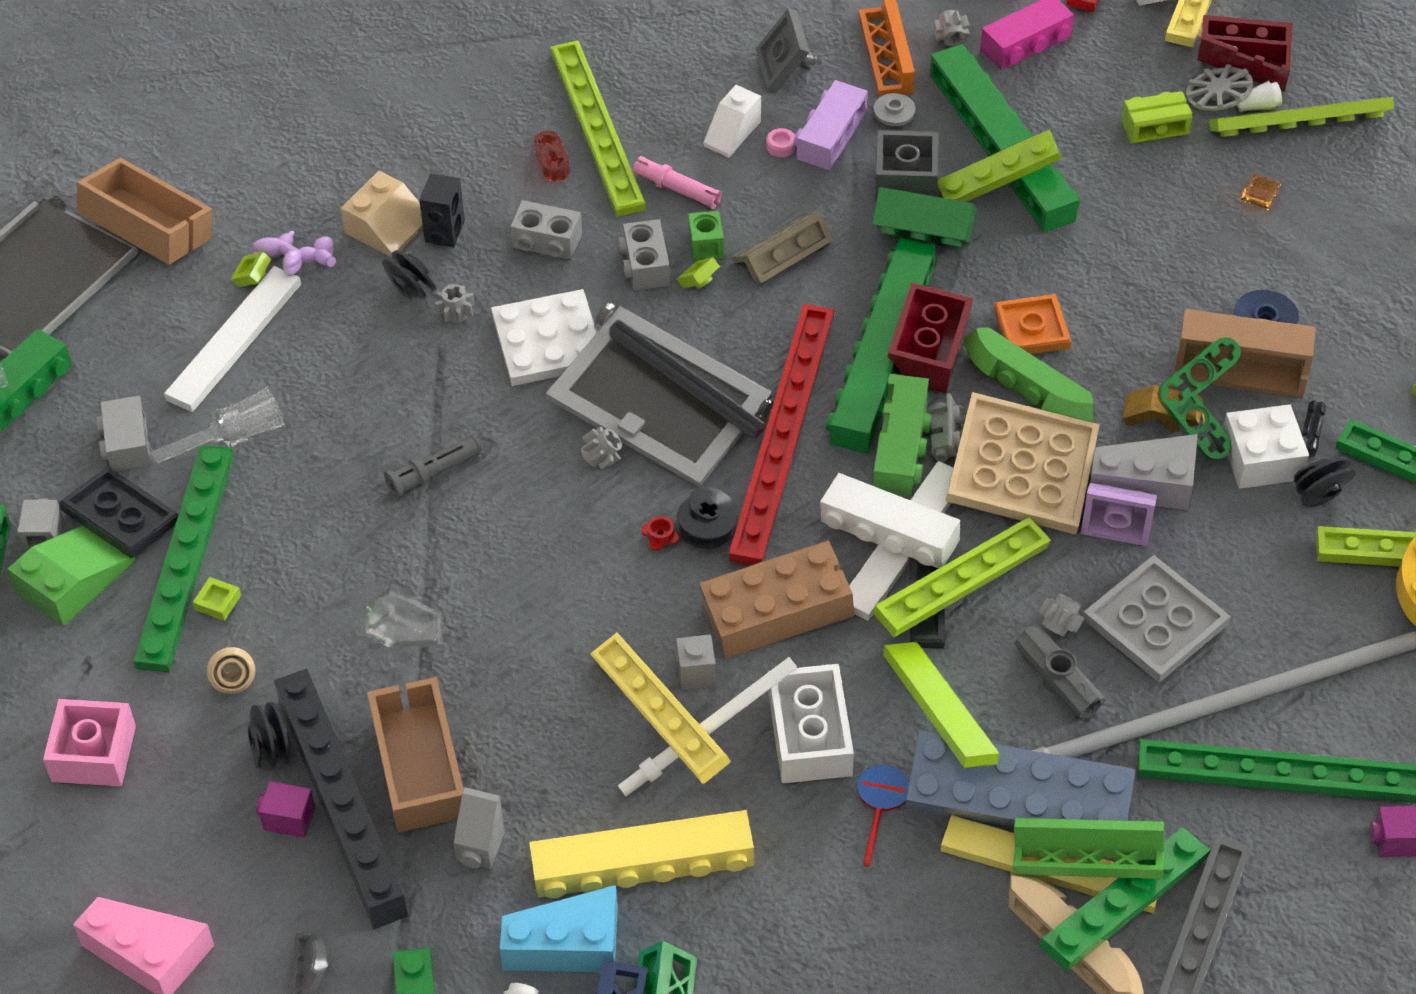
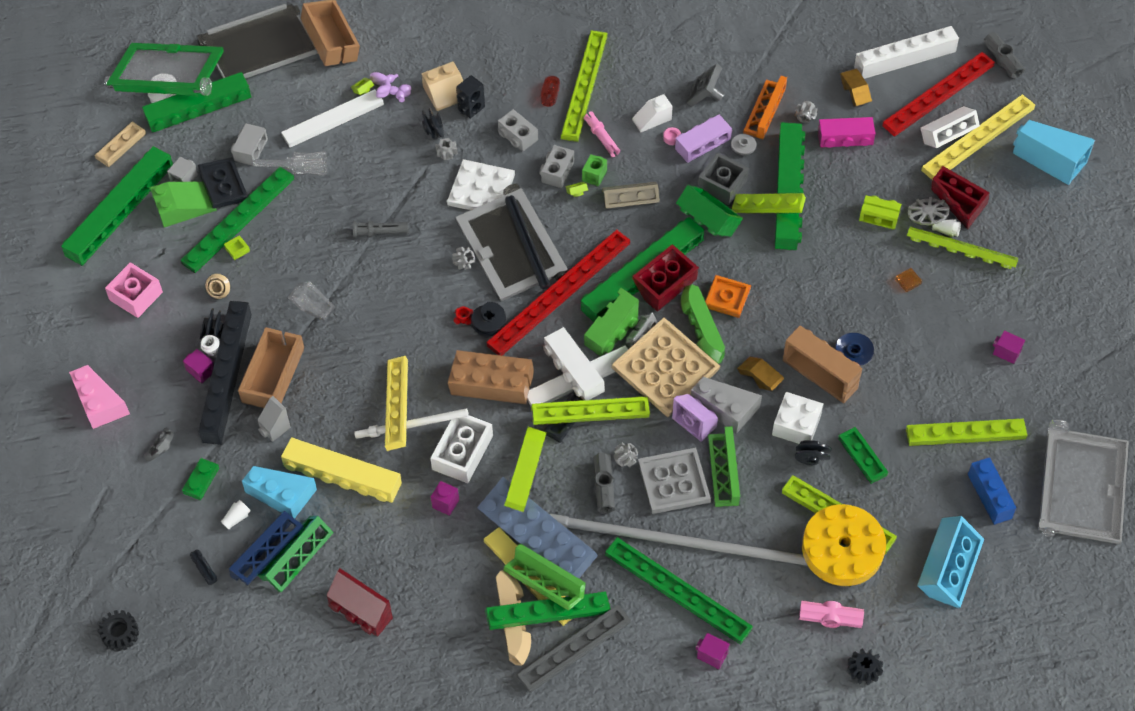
camera: 30 degrees right, 5 degrees up
(291, 766) = (210, 346): none -> white cone
(696, 662) = (431, 389): light grey brick -> none
(839, 813) = (445, 498): none -> magenta brick
(883, 790) = (473, 497): blue piece -> none
(1189, 400) = (770, 376): green beam -> none
(1224, 558) = (731, 464): none -> bright green fence
(1313, 426) = (833, 422): black axle -> none

